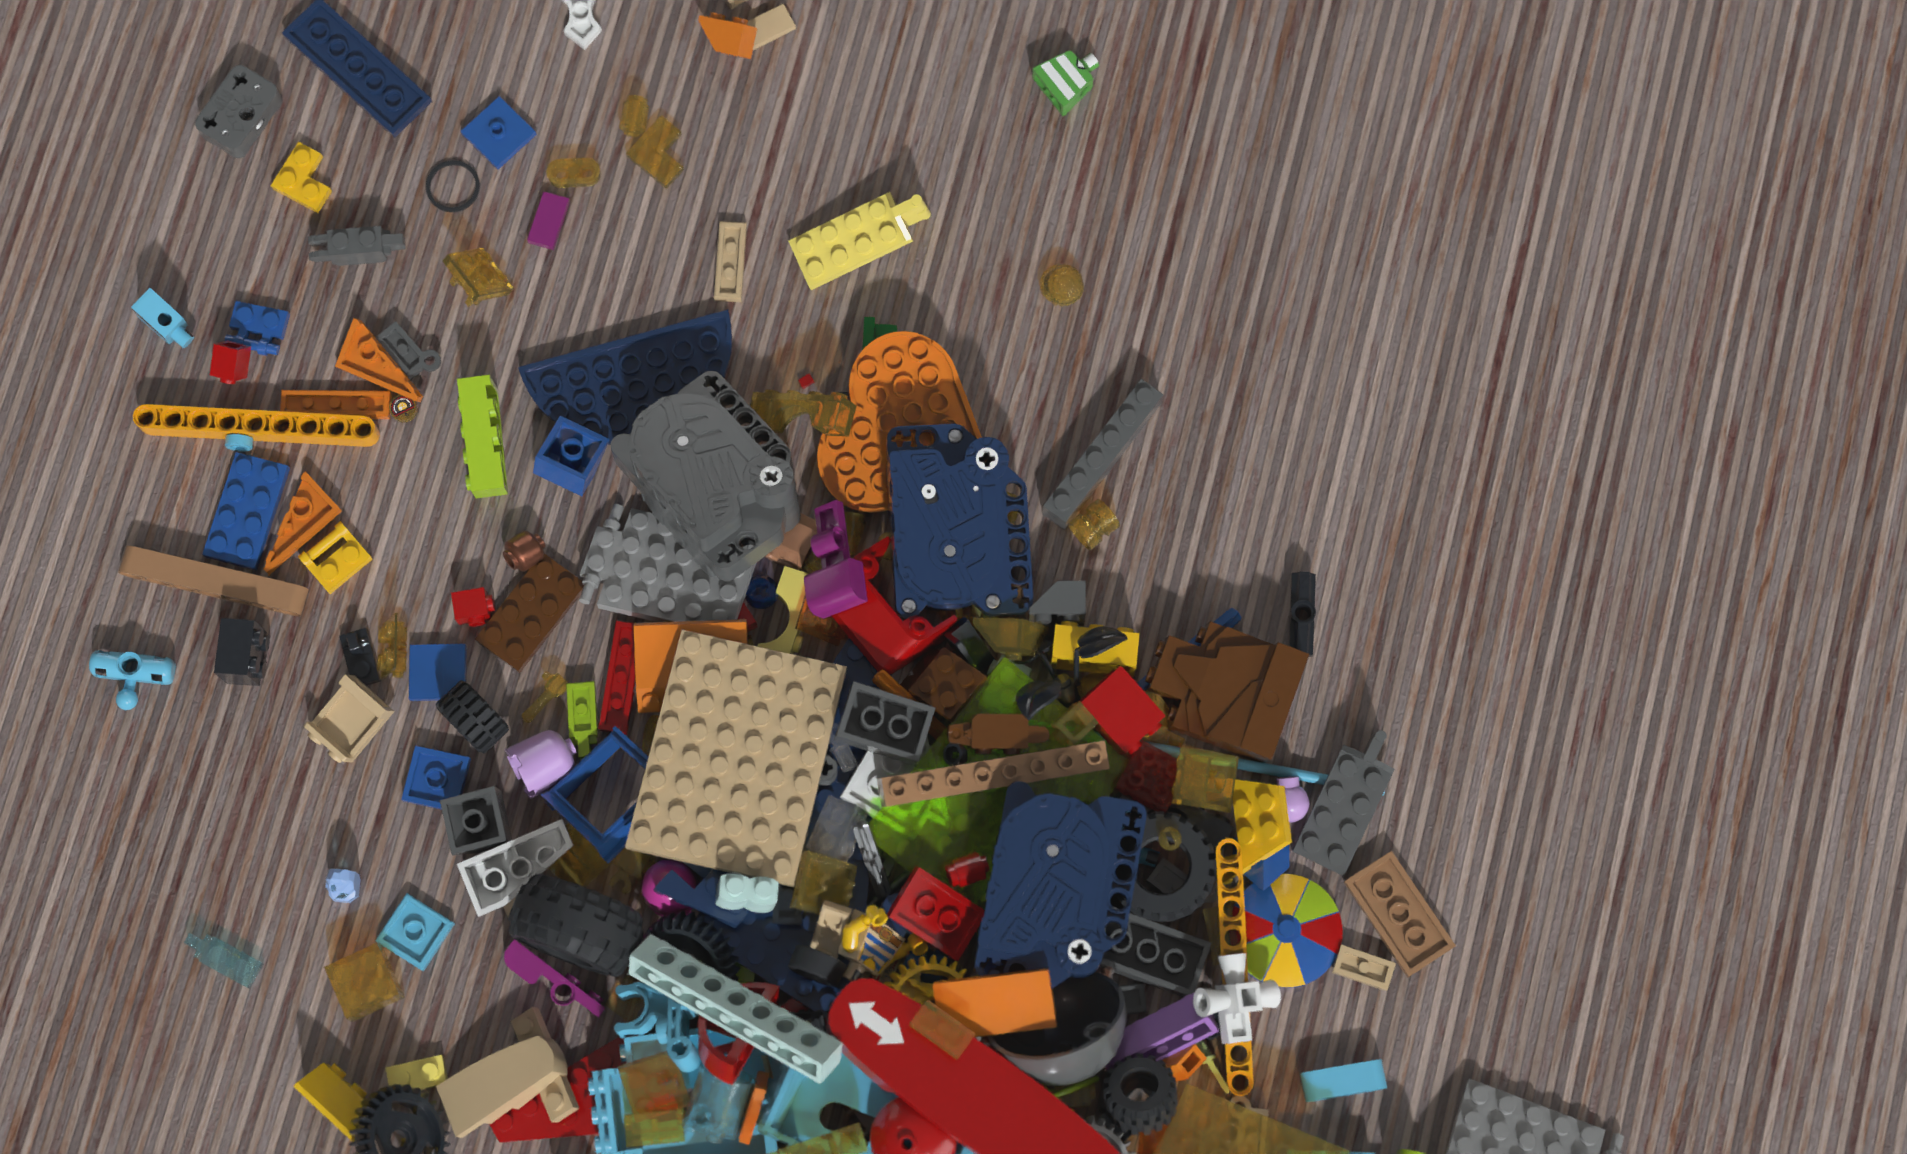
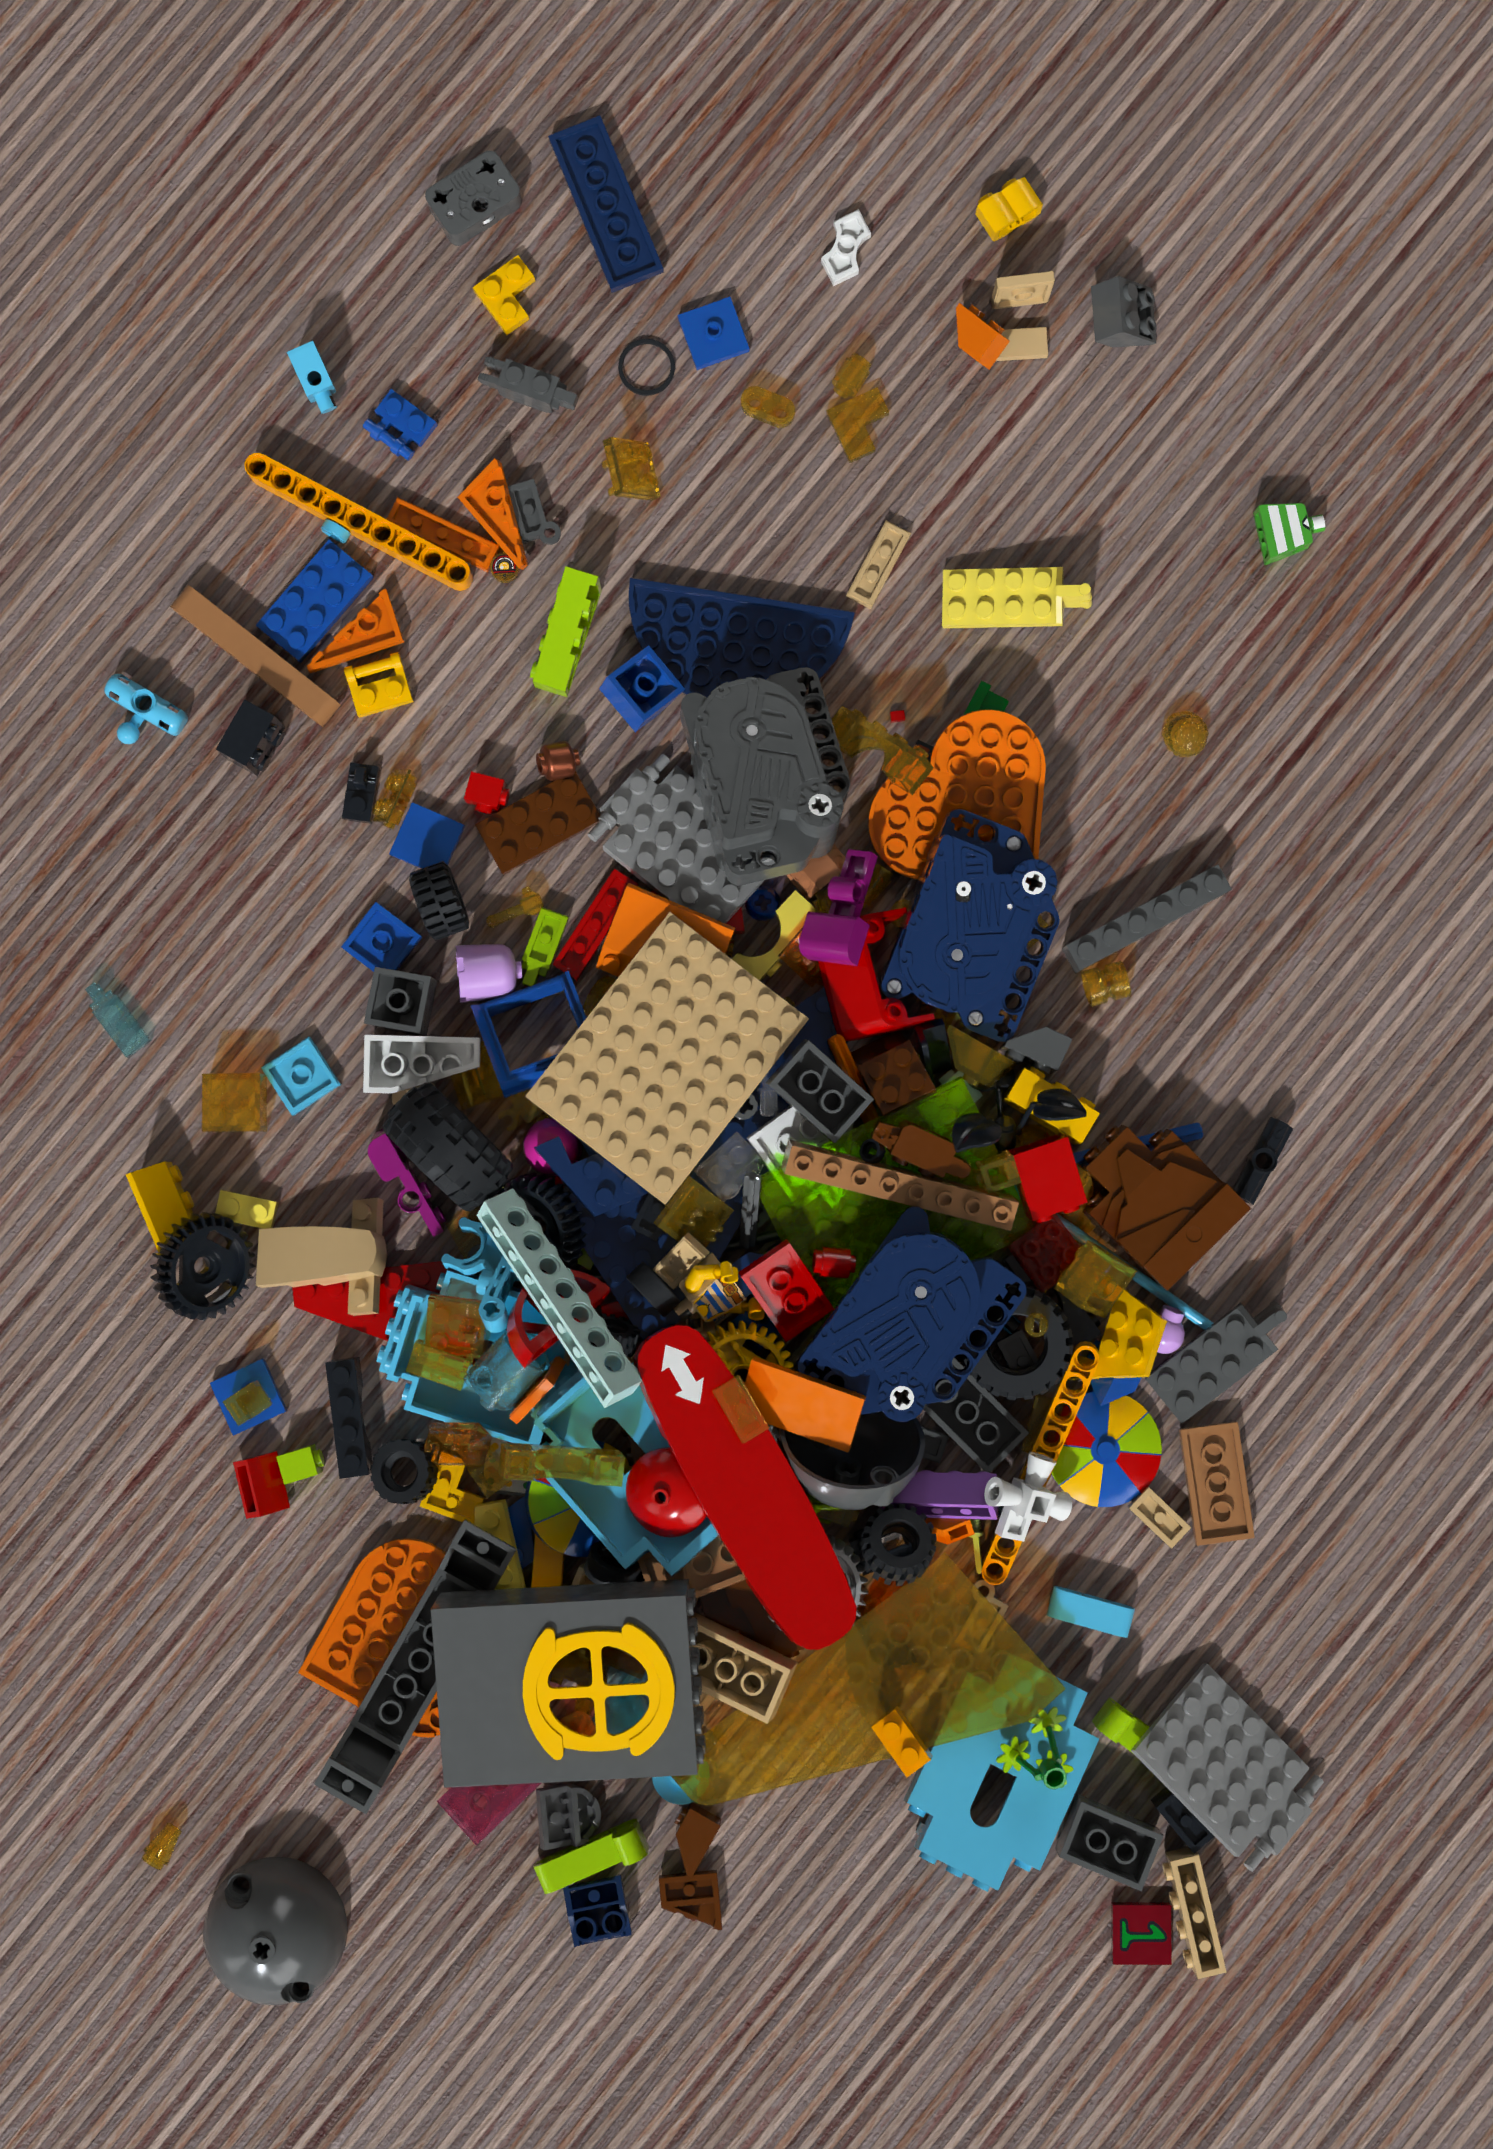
camera: 25 degrees right, 10 degrees up
(230, 361) = (360, 447): red brick -> none
(343, 885) = (253, 1003): light blue rock -> none
(349, 720) = (324, 848): tan panel -> none
(548, 220) = (722, 444): magenta tile -> none
(754, 894) = (625, 1197): light aqua brick -> none

